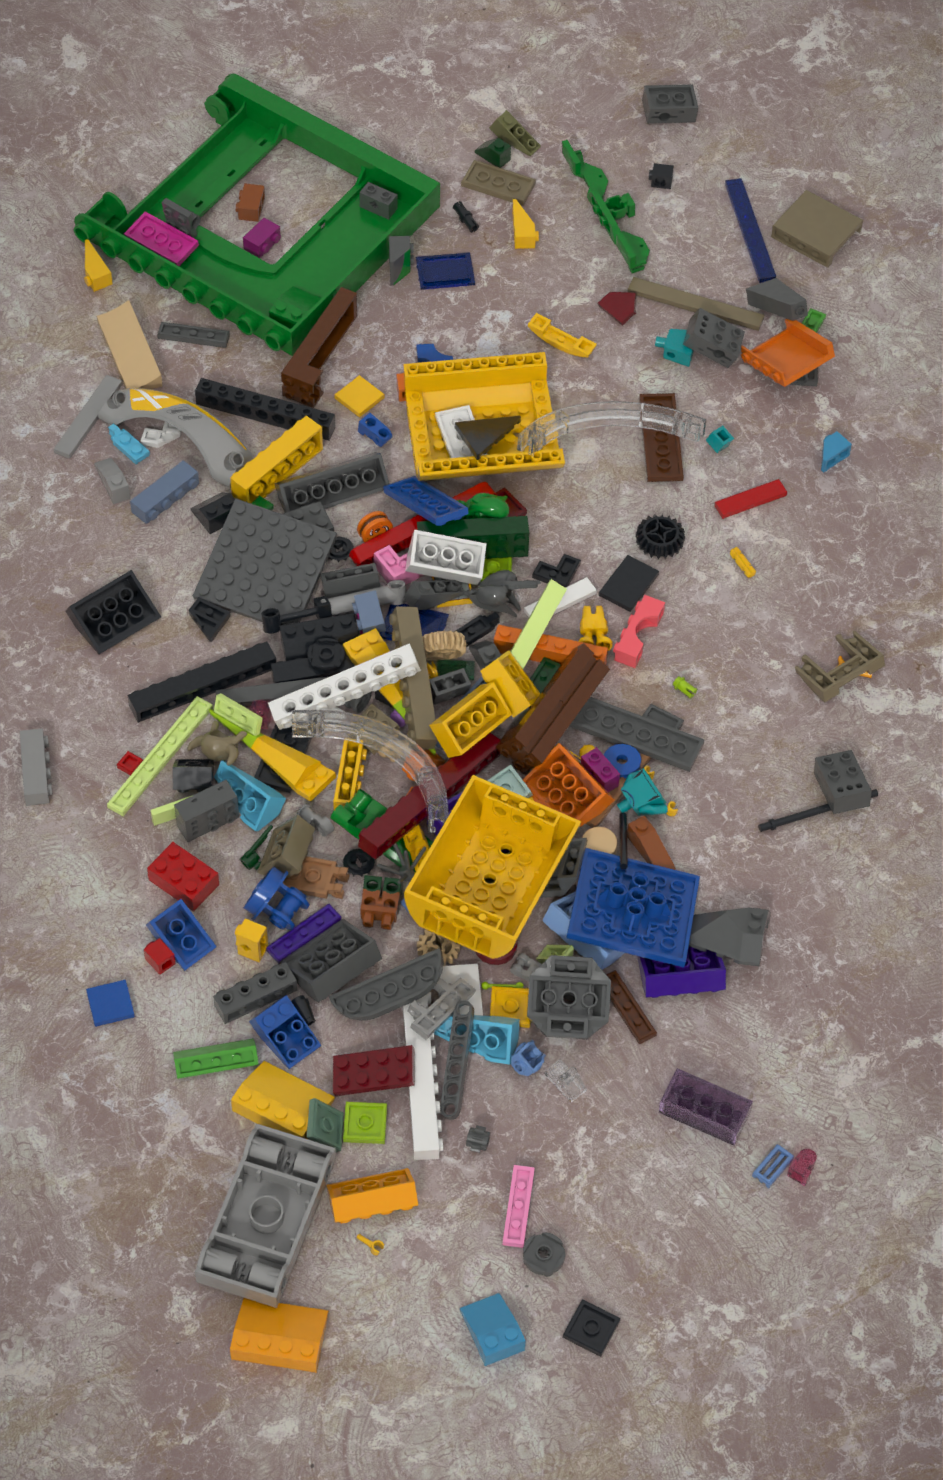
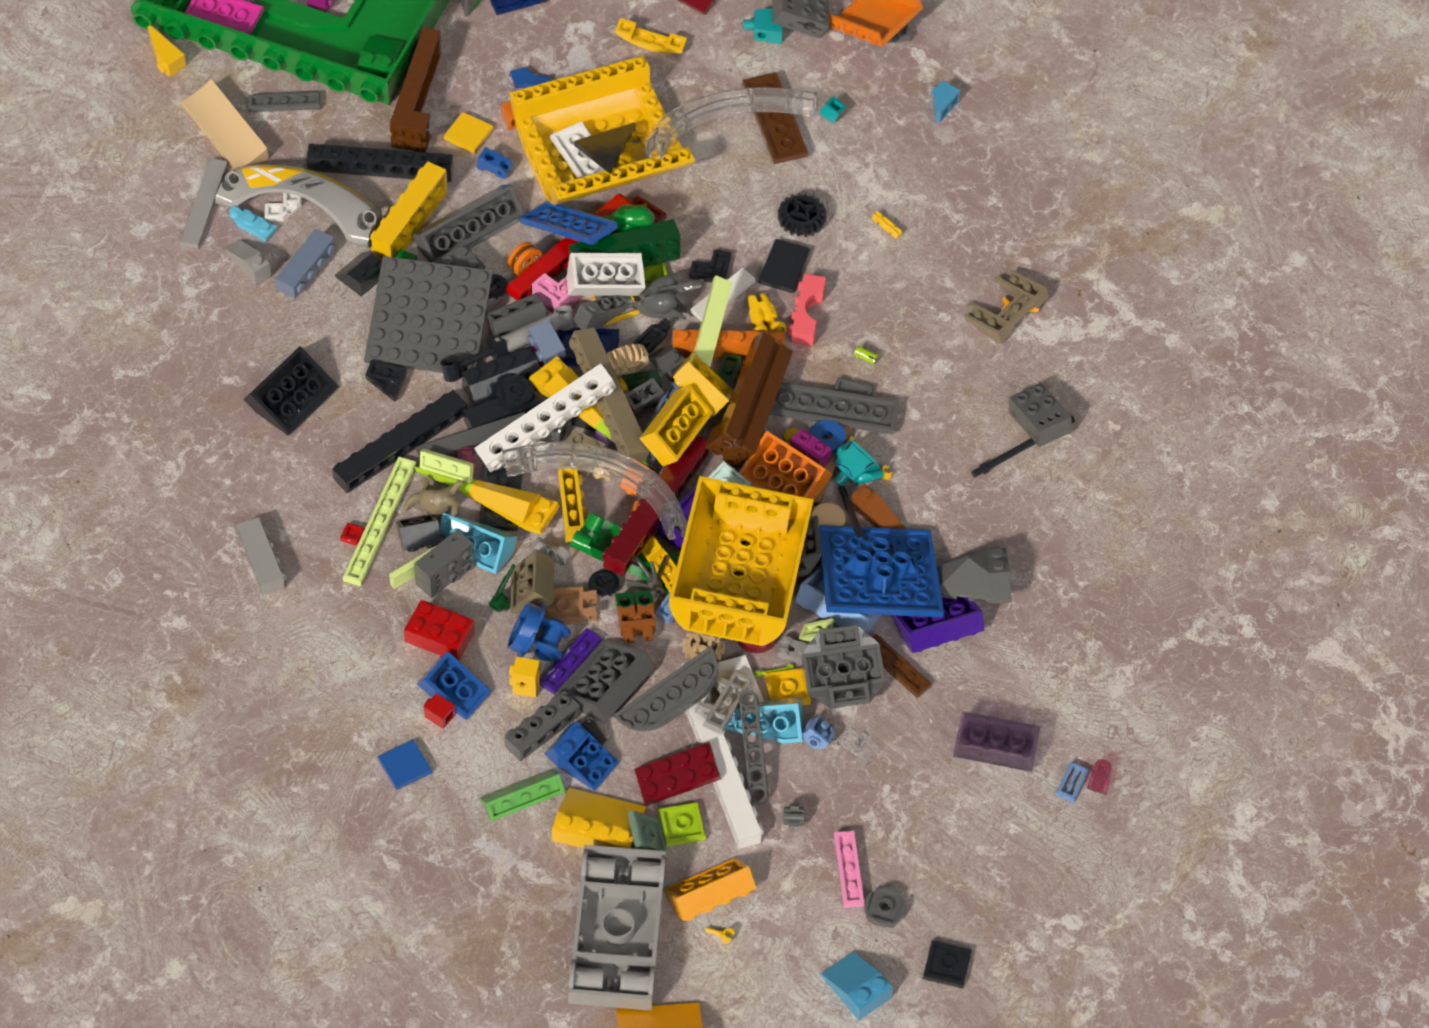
camera: 15 degrees left, 0 degrees up
(750, 498) = (877, 162): red tile -> none

